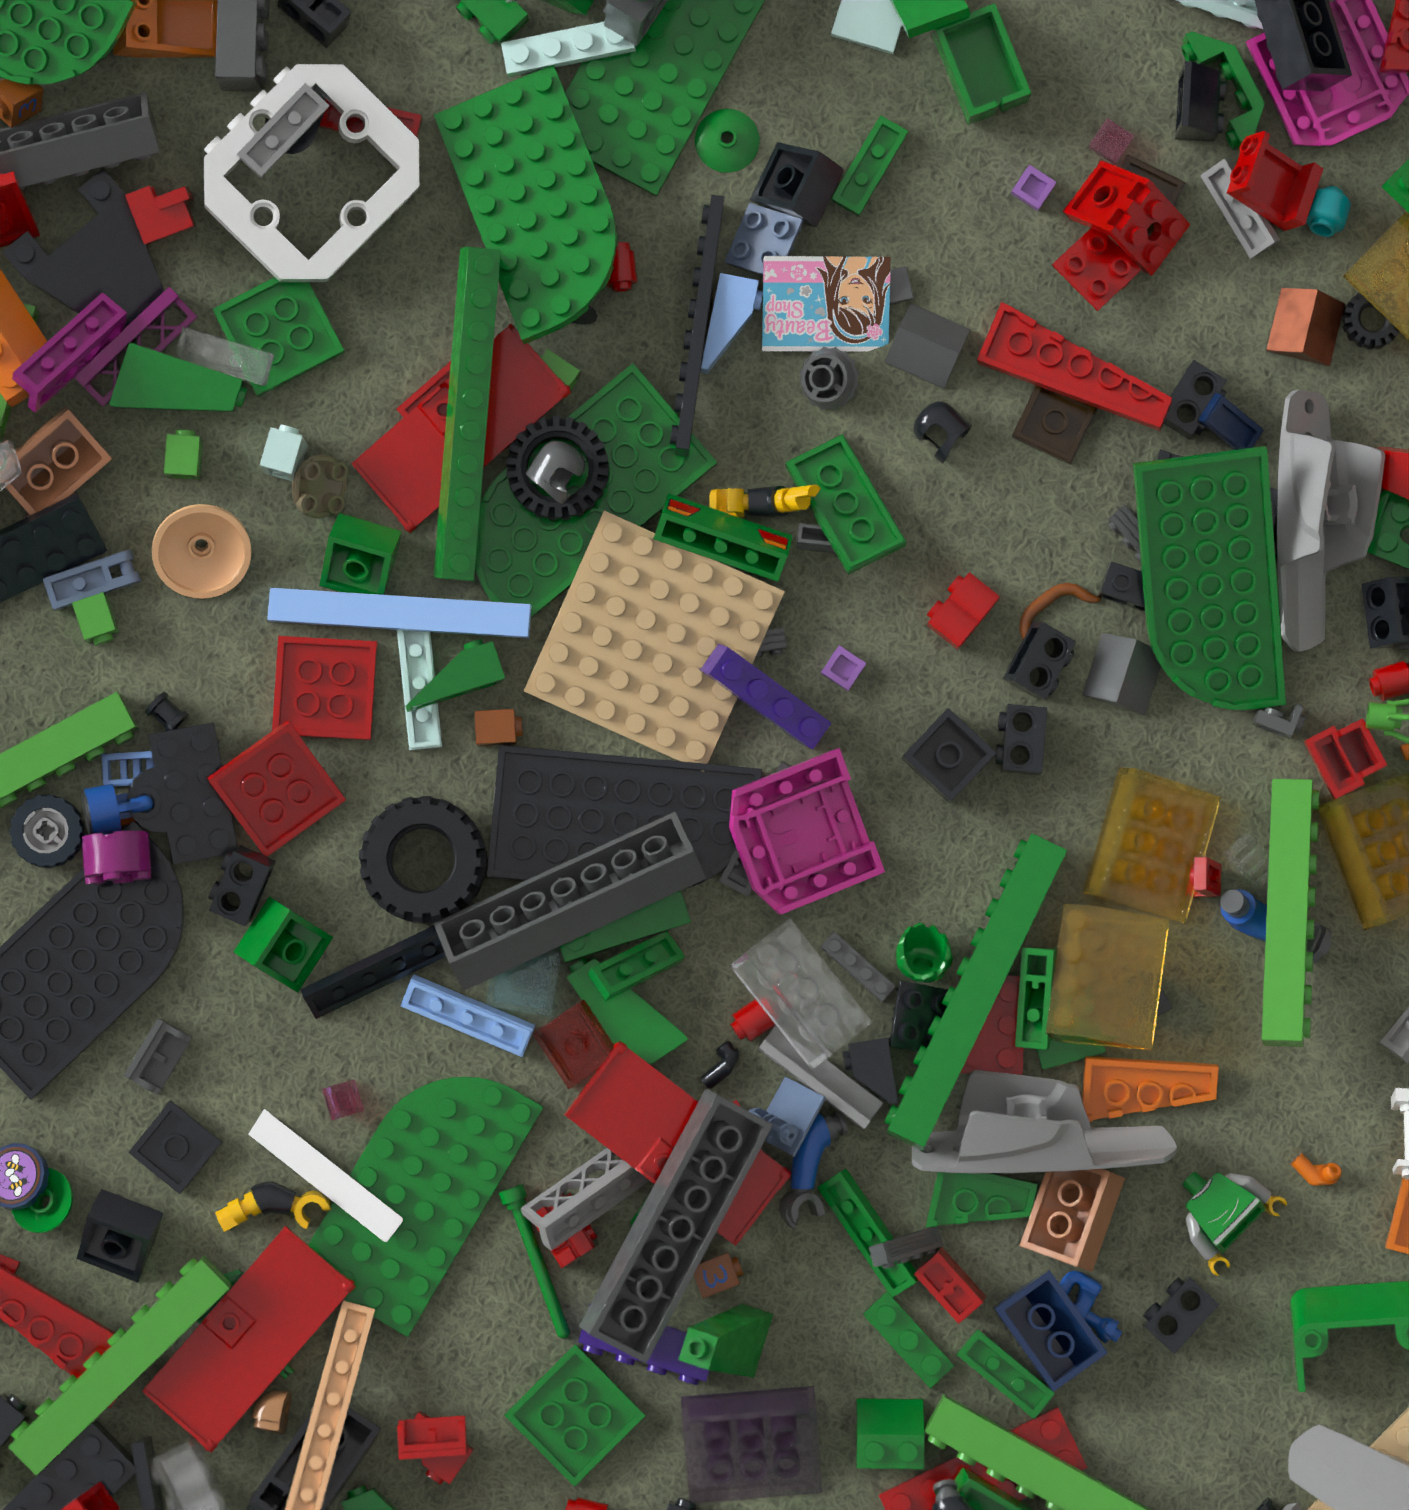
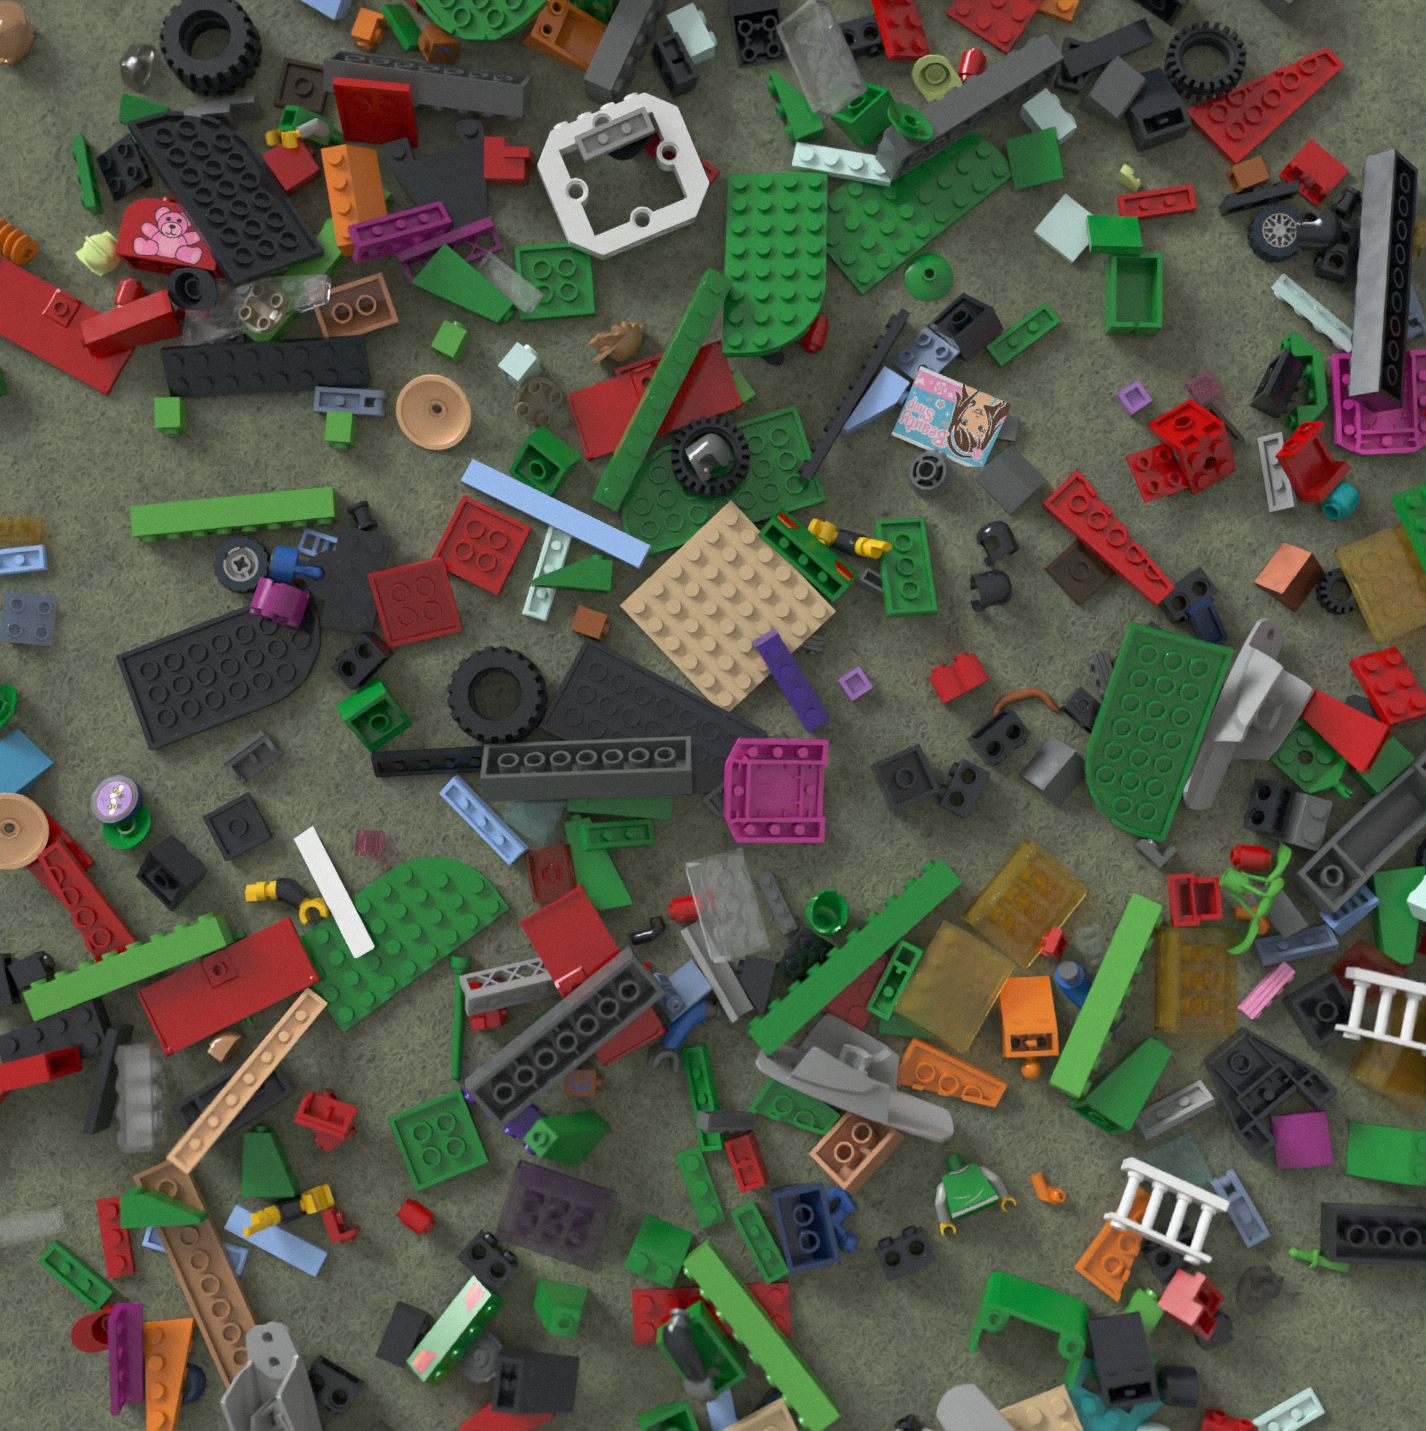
camera: 30 degrees right, 0 degrees up
(388, 376) = (620, 343): none -> medium nougat hair
(960, 486) = (993, 589): none -> black helmet
(1208, 977) = (1026, 1014): none -> orange slope
(1353, 1020) = (1123, 1089): none -> green slope

